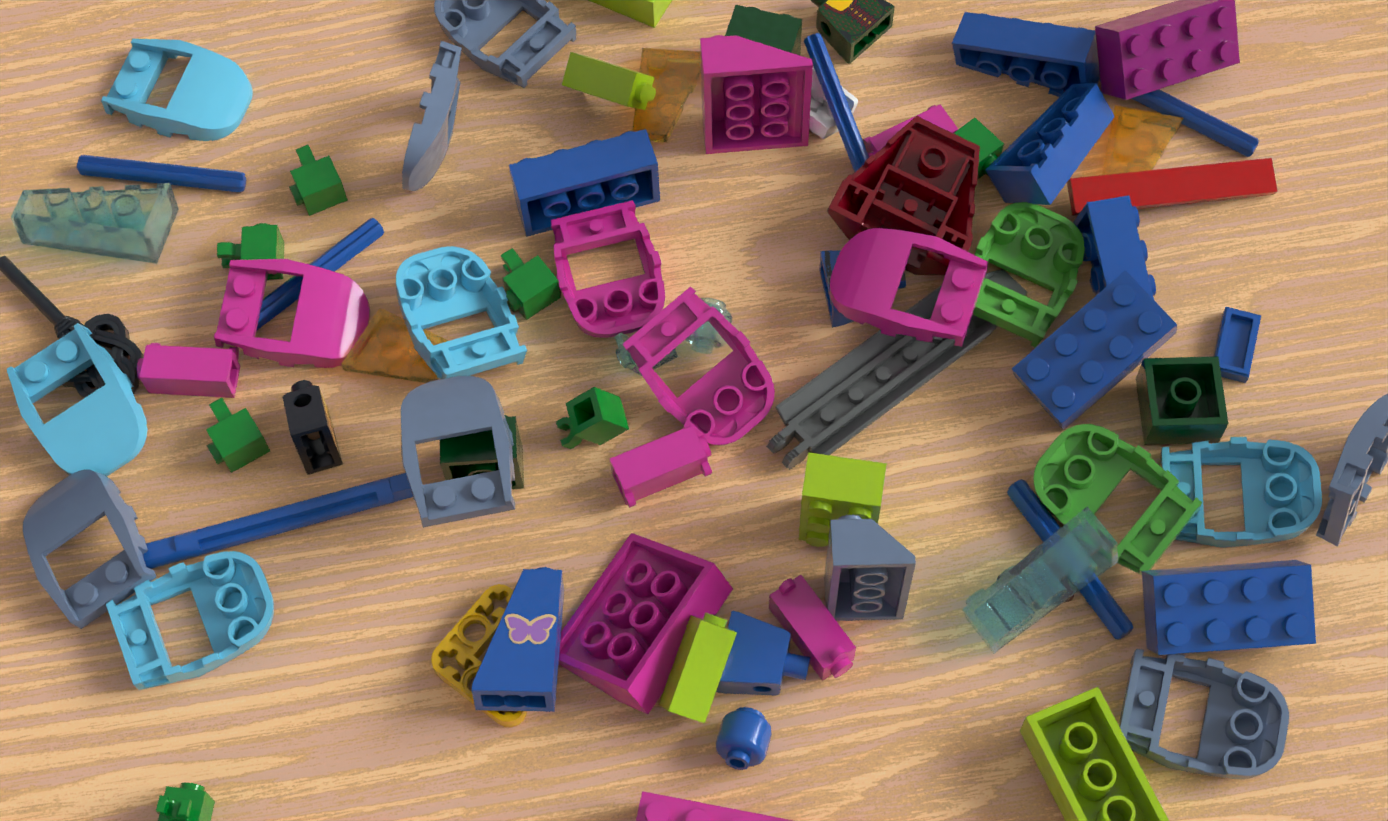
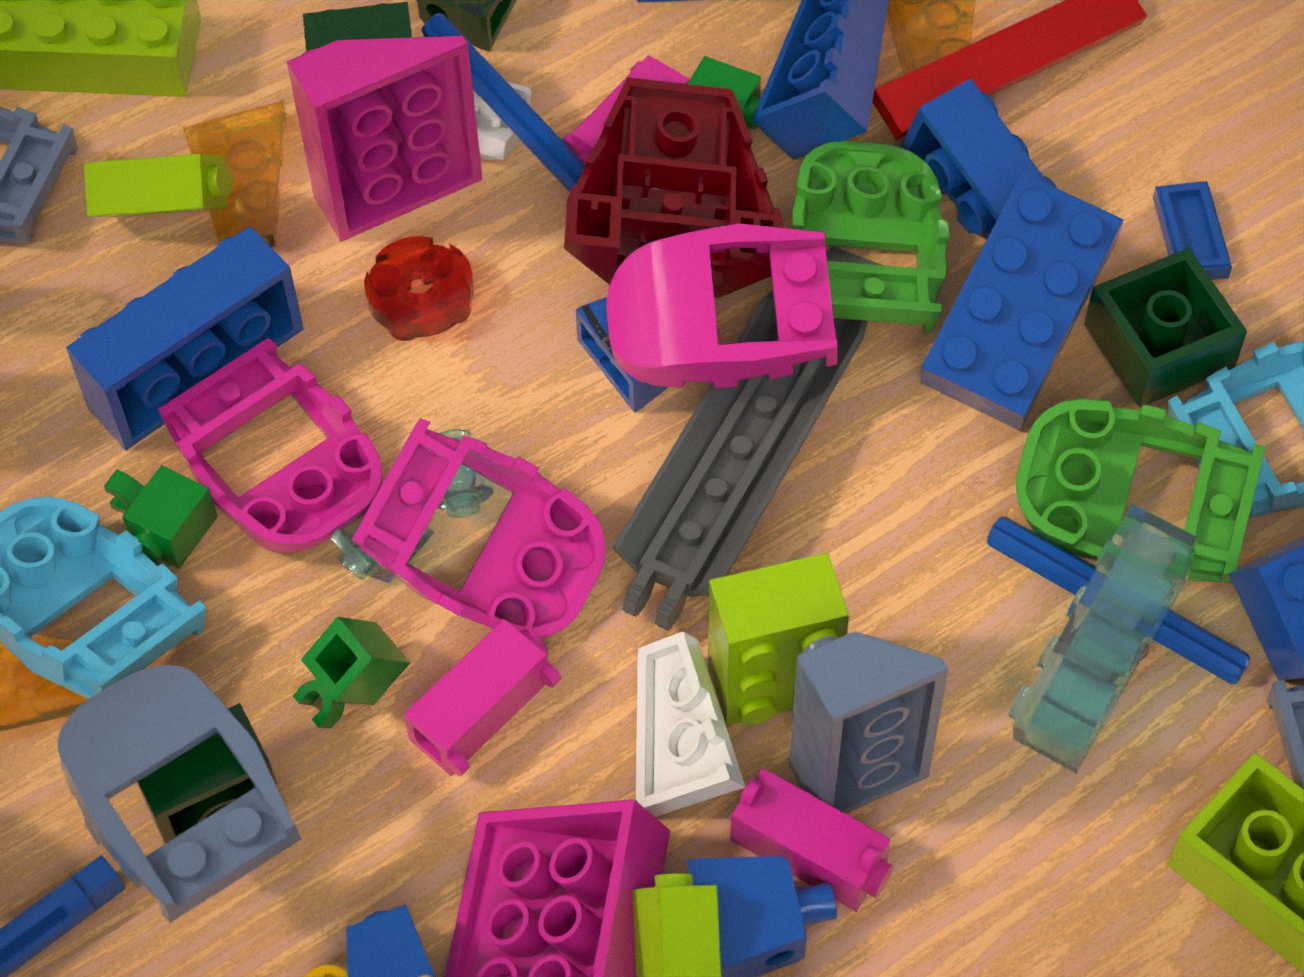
camera: 25 degrees left, 5 degrees down
(732, 218) = (424, 313): none -> clear red plate
(766, 532) = (680, 729): none -> white wing

